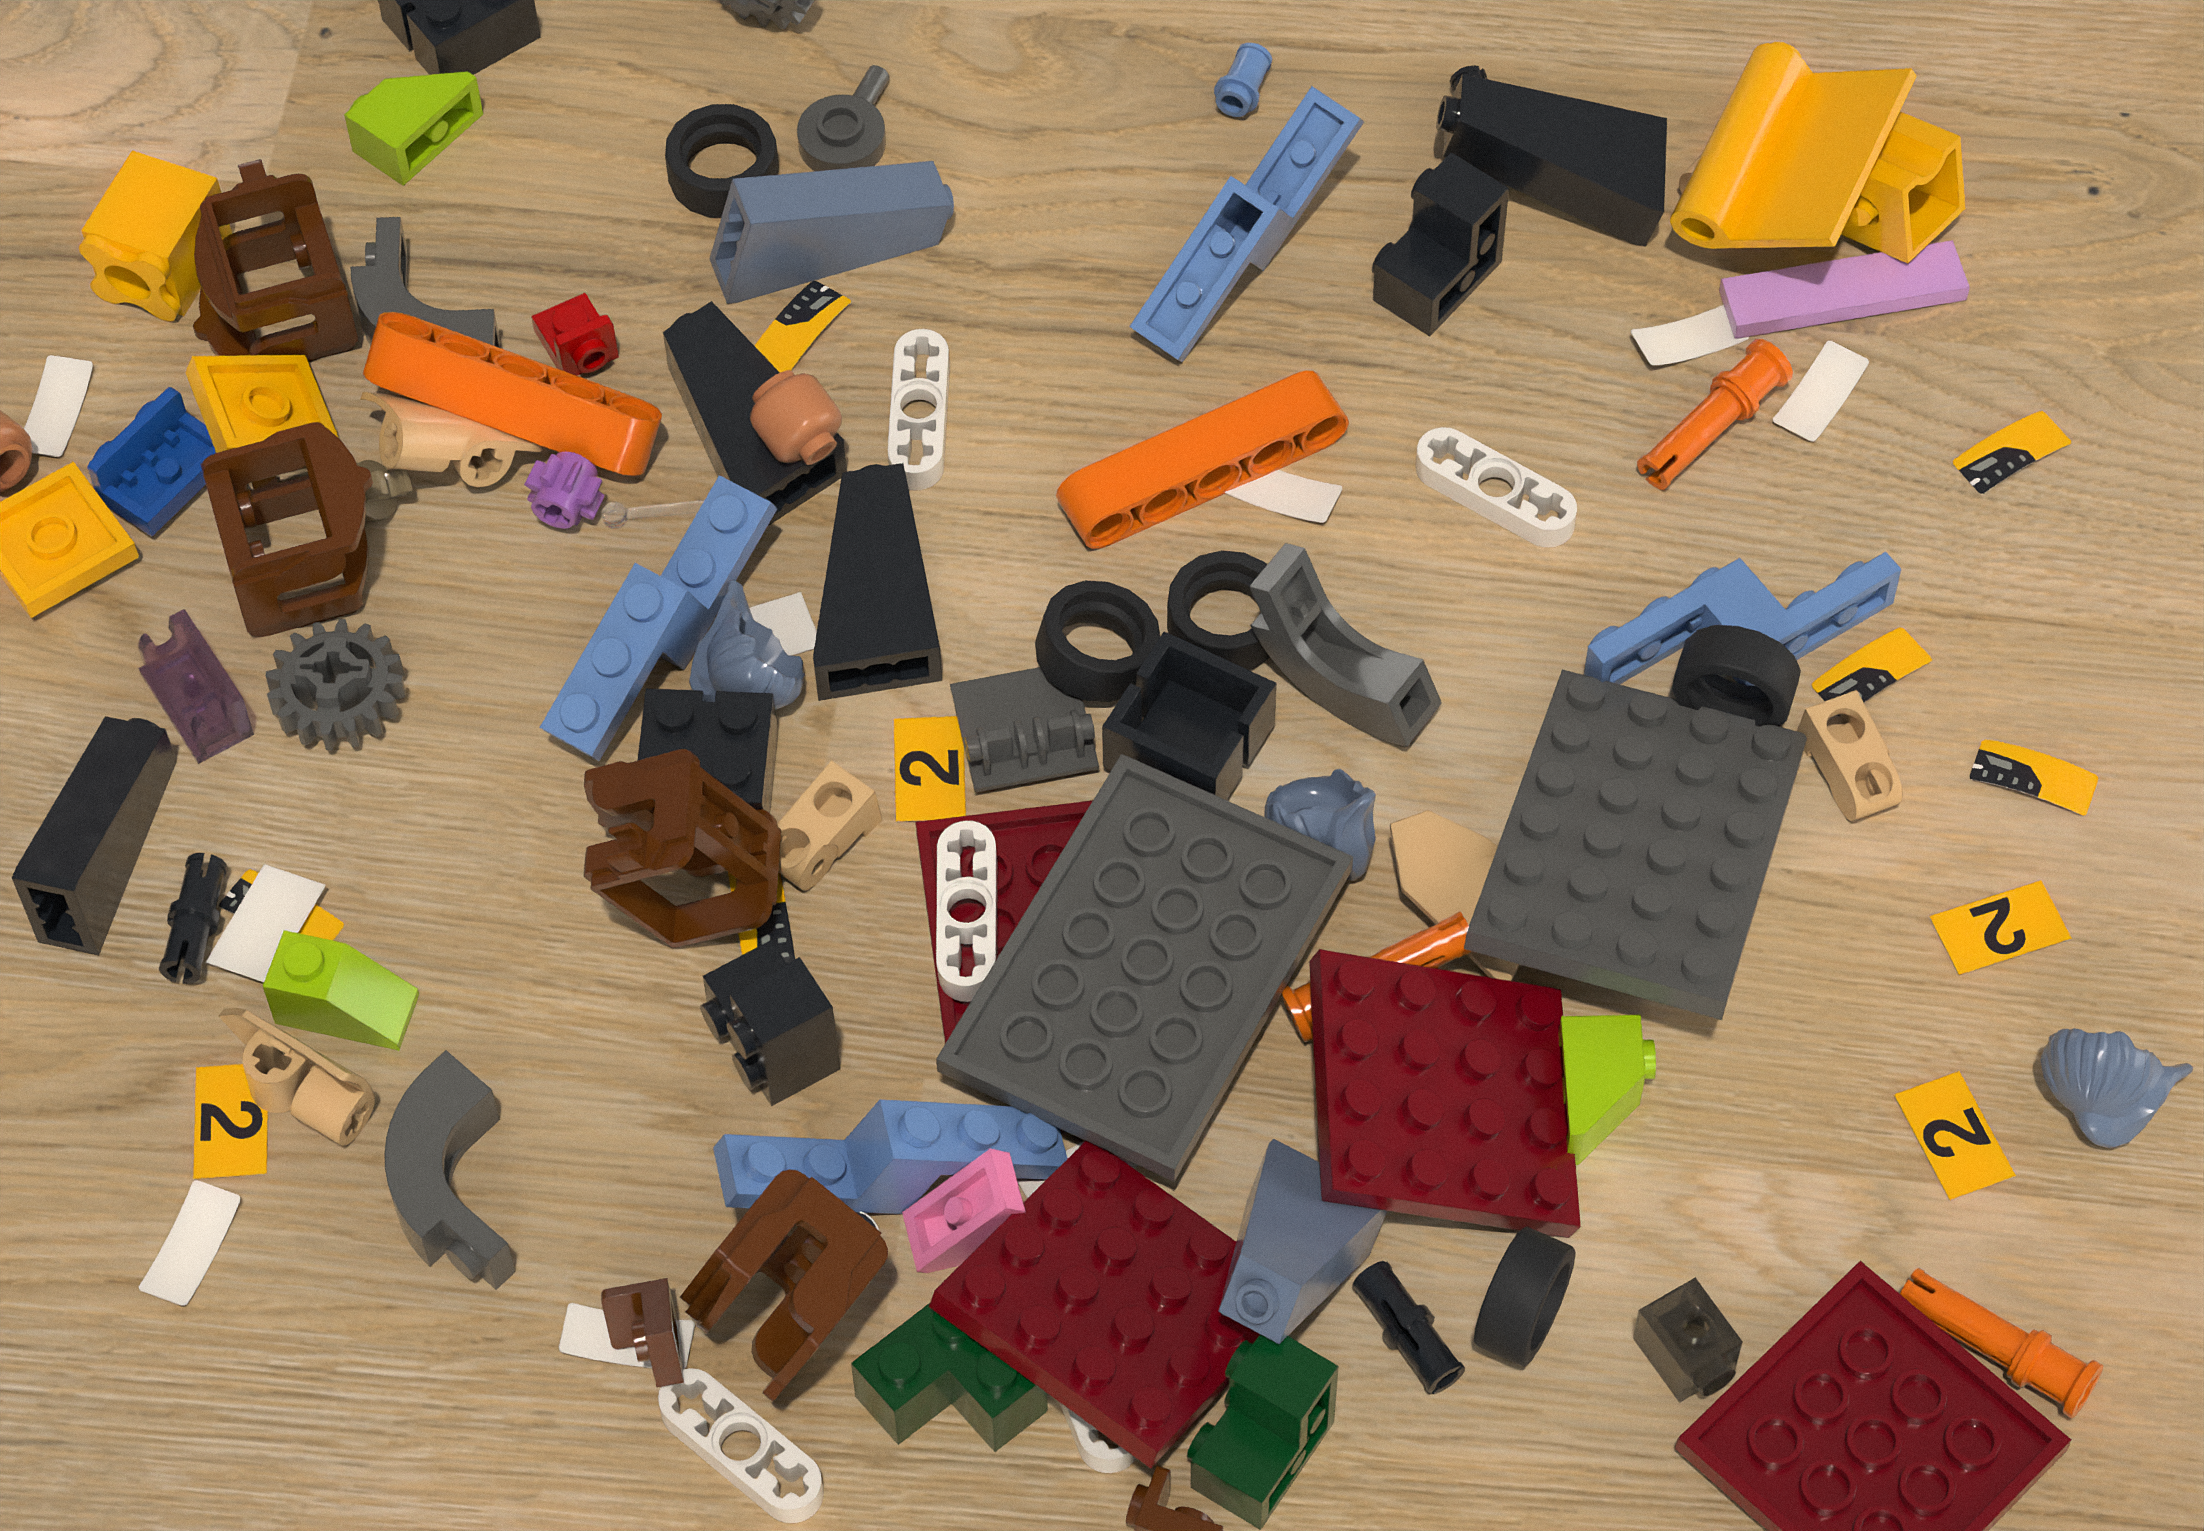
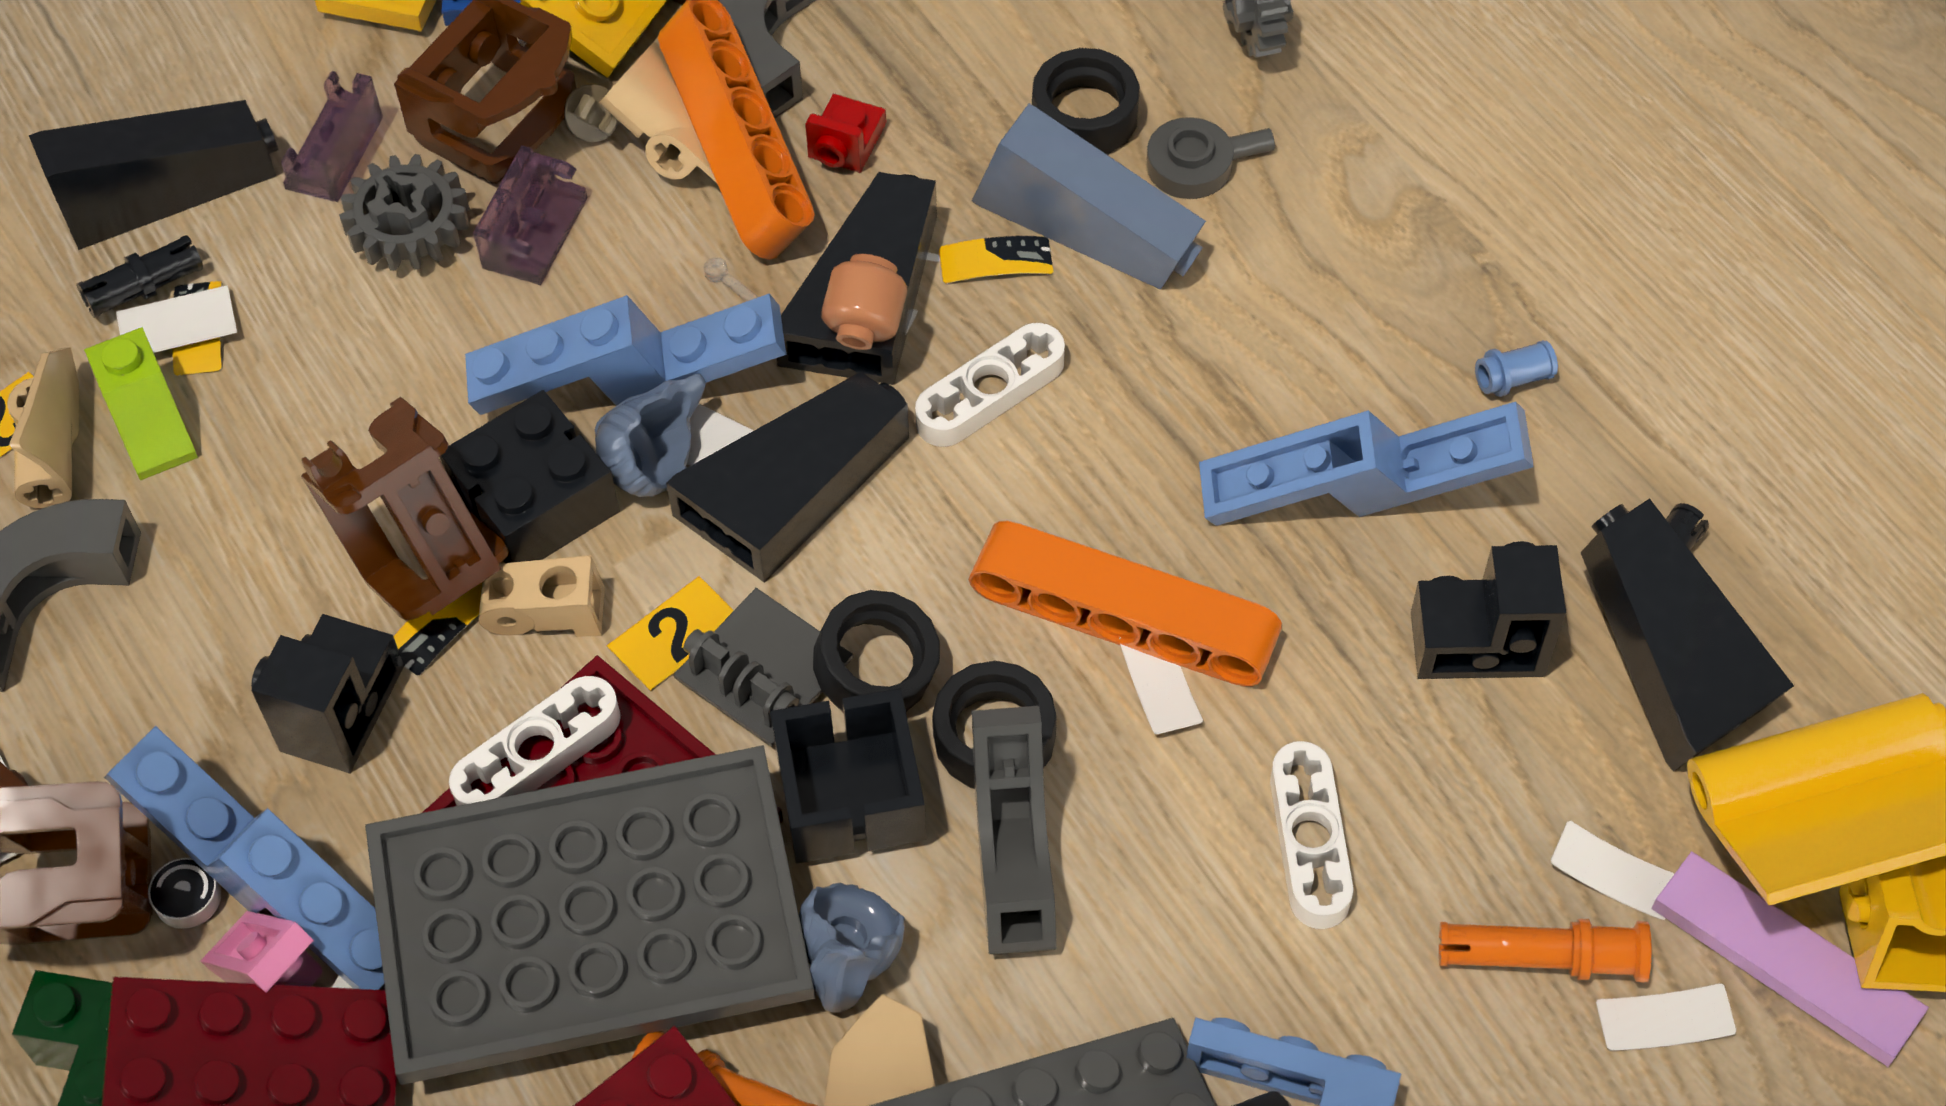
camera: 50 degrees right, 0 degrees up
(432, 603) = (529, 217): none -> hinge
(564, 490) = (694, 220): medium lavender gear -> none

